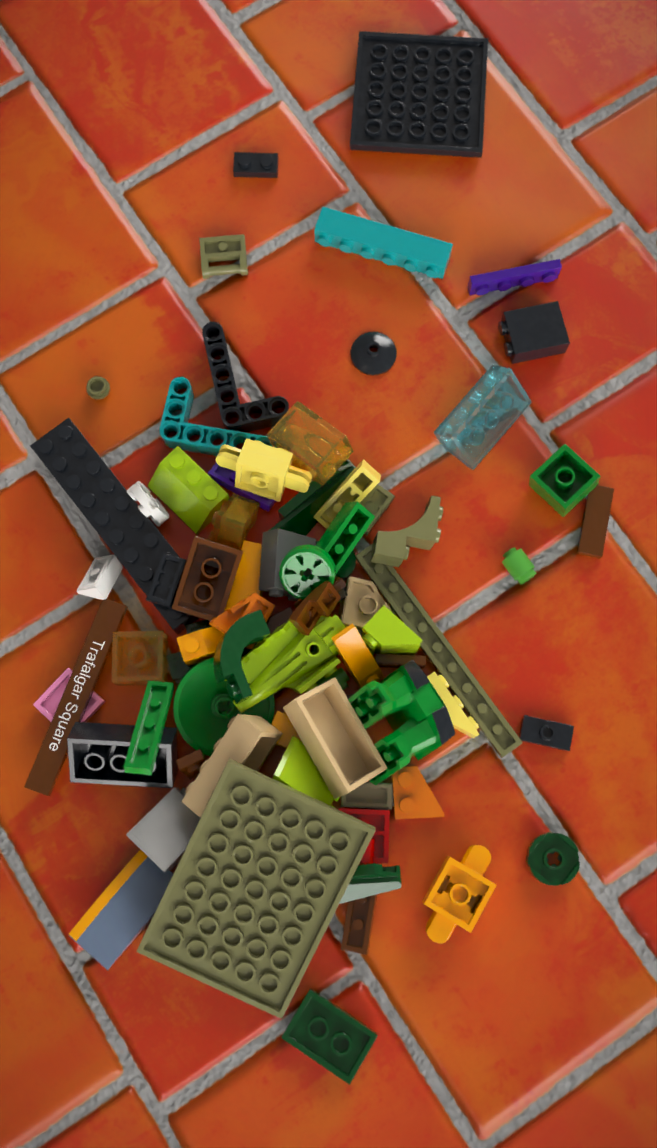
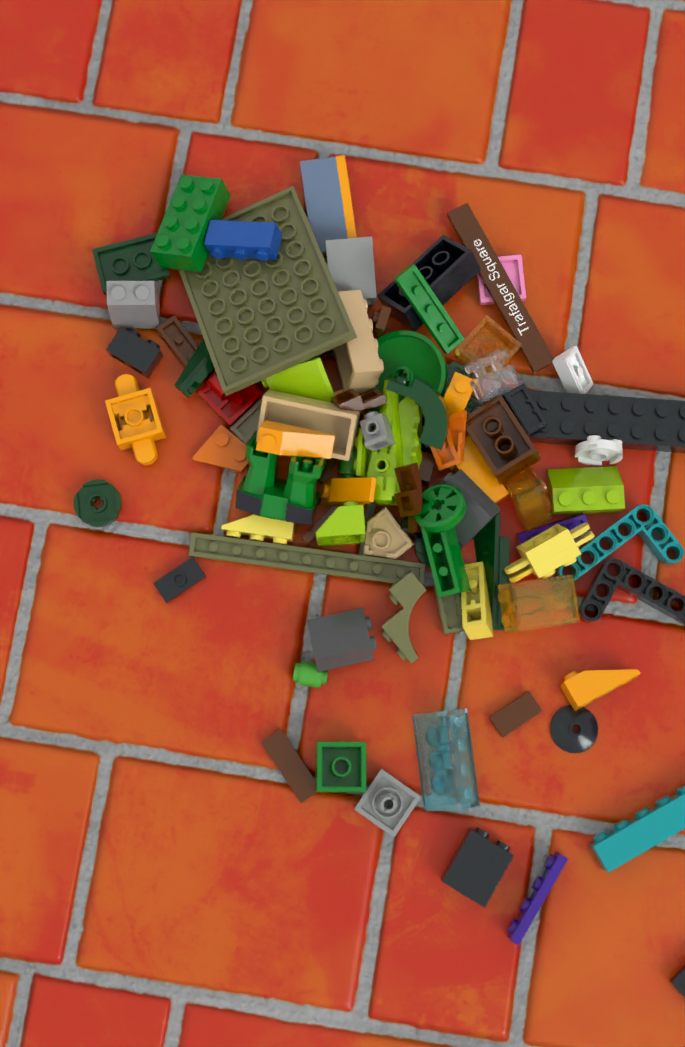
camera: 130 degrees right, 5 degrees up
(163, 621) = (494, 383): none -> clear plate
(226, 946) = (243, 240): none -> blue brick
(249, 1013) = (186, 222): none -> green brick
(284, 718) = (353, 401): none -> reddish brown slope
(287, 668) = (382, 436): none -> light grey brick
(335, 364) = (593, 684): none -> light orange slope
(362, 733) = (294, 441): none -> light orange slope
(363, 995) = (133, 304): none -> light grey slope
(402, 399) = (515, 714): none -> reddish brown tile
(403, 953) = (135, 352): none -> black brick
(472, 563) = (341, 639): none -> dark grey brick
(551, 429) = (387, 802): none -> light grey plate

